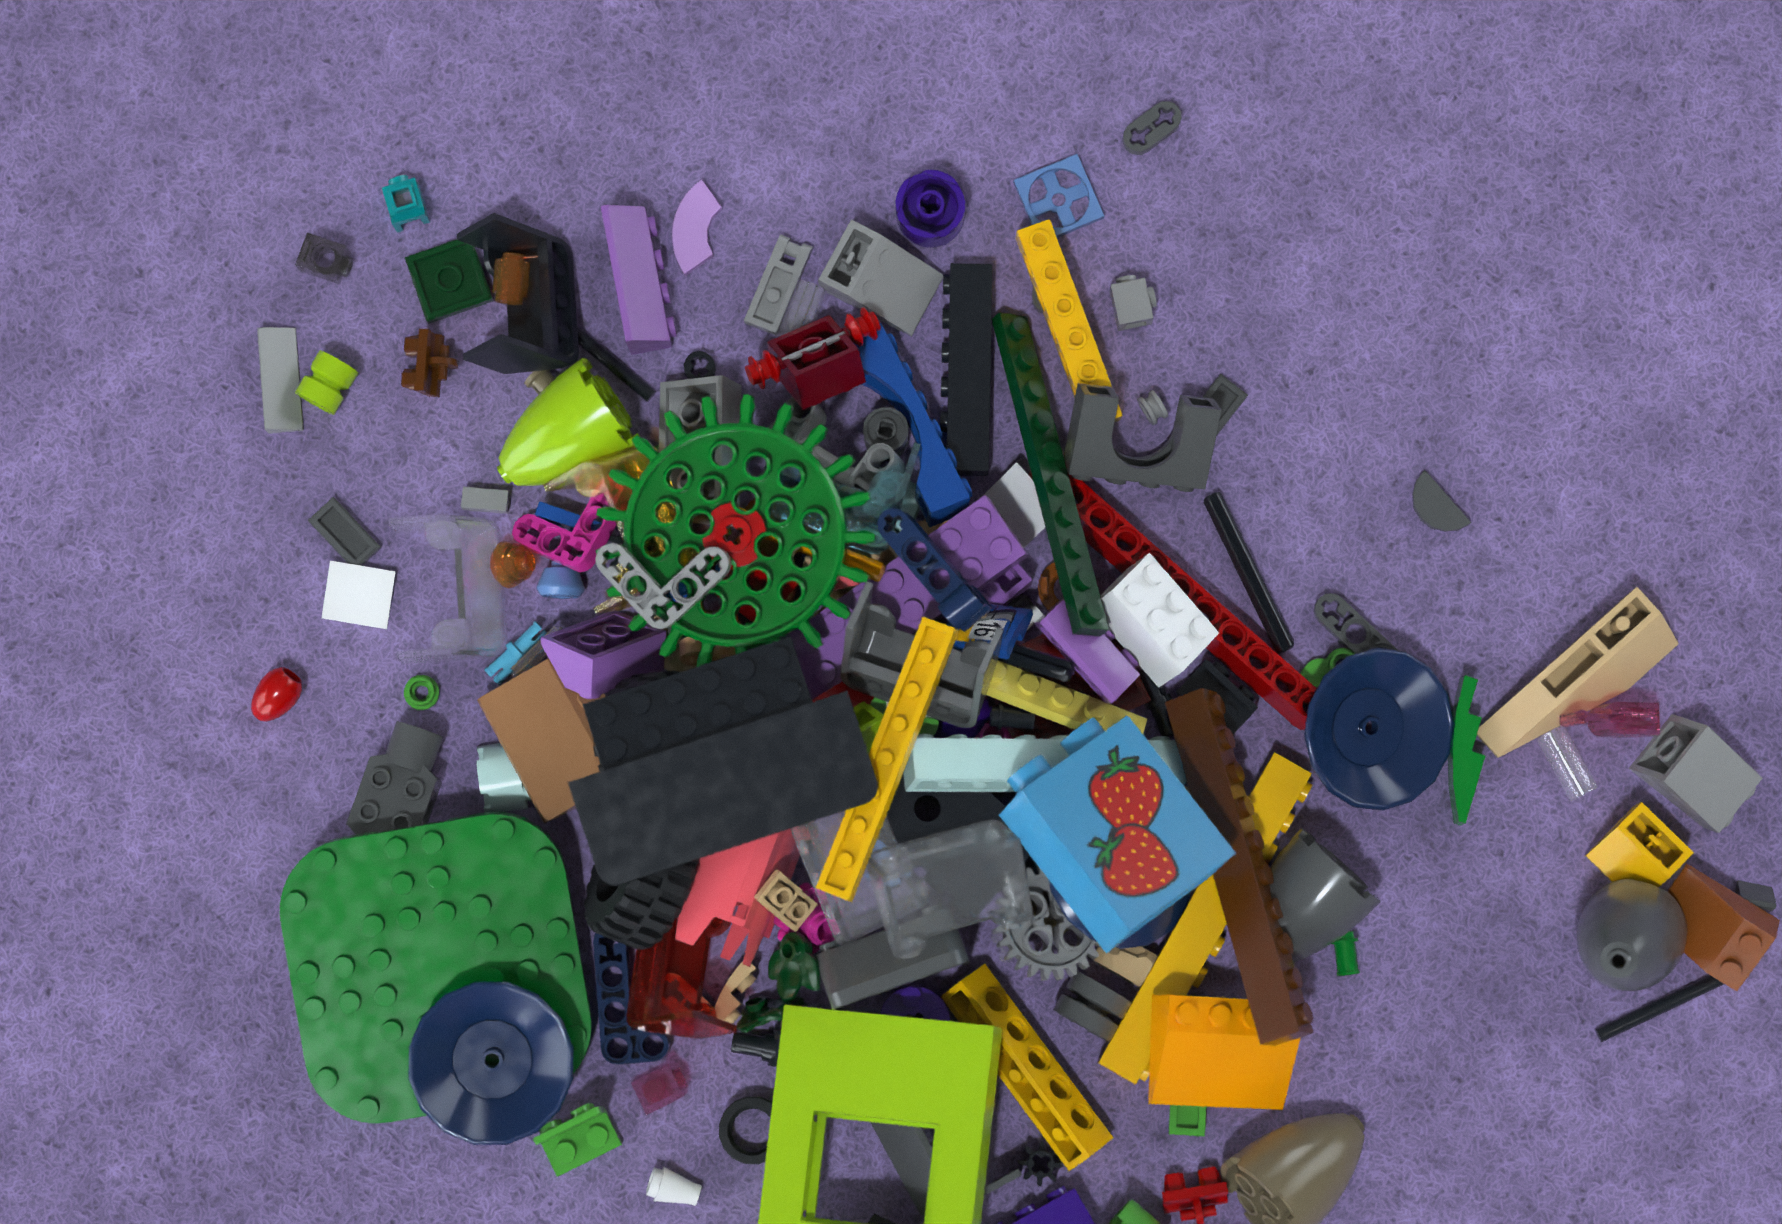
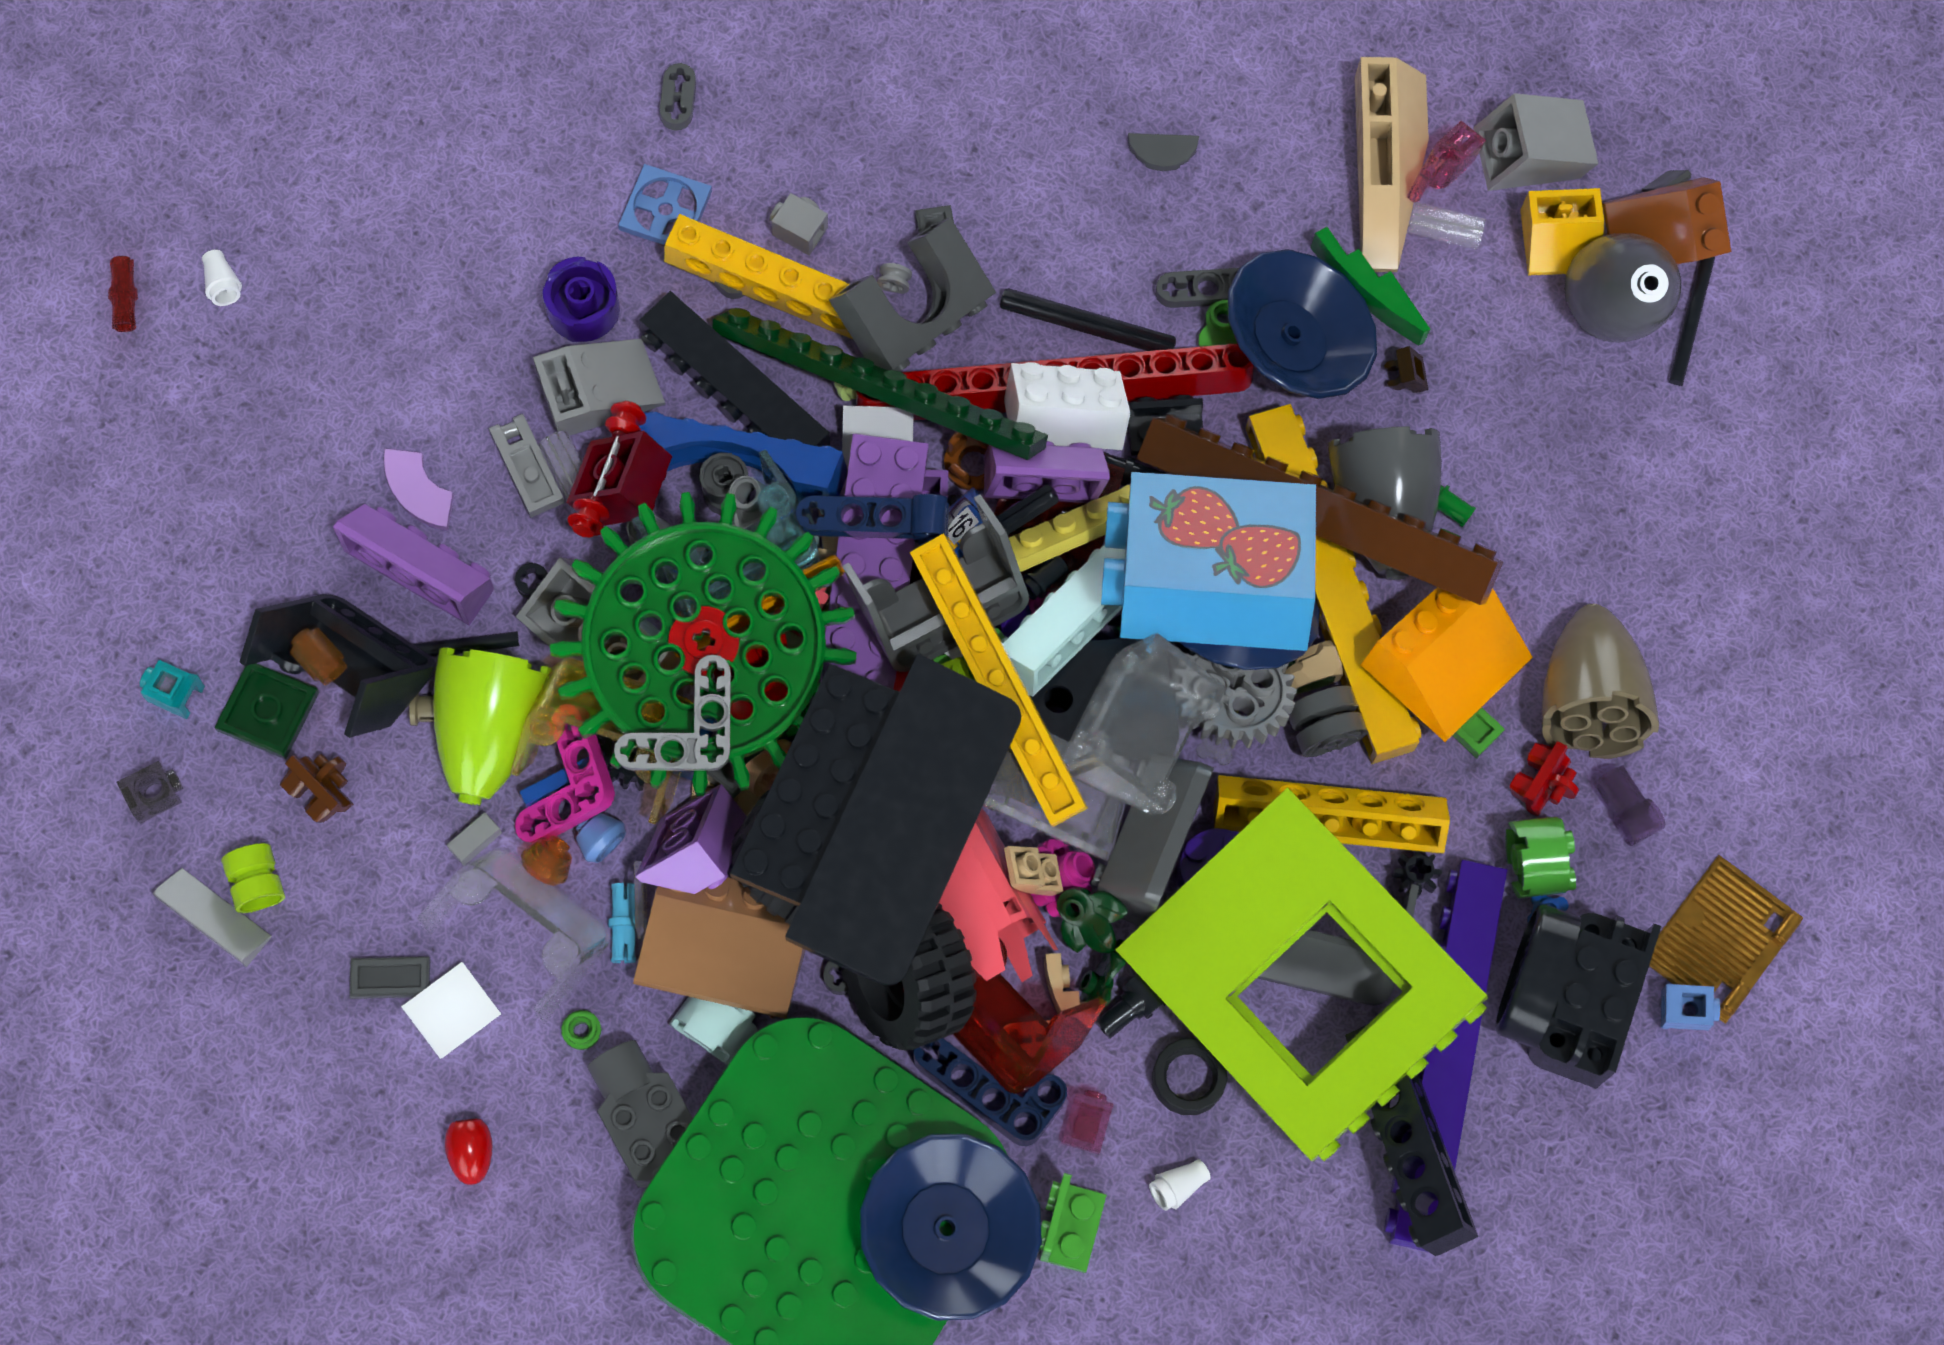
camera: 60 degrees left, 10 degrees down
(1424, 835) = (1411, 371): none -> dark brown tile

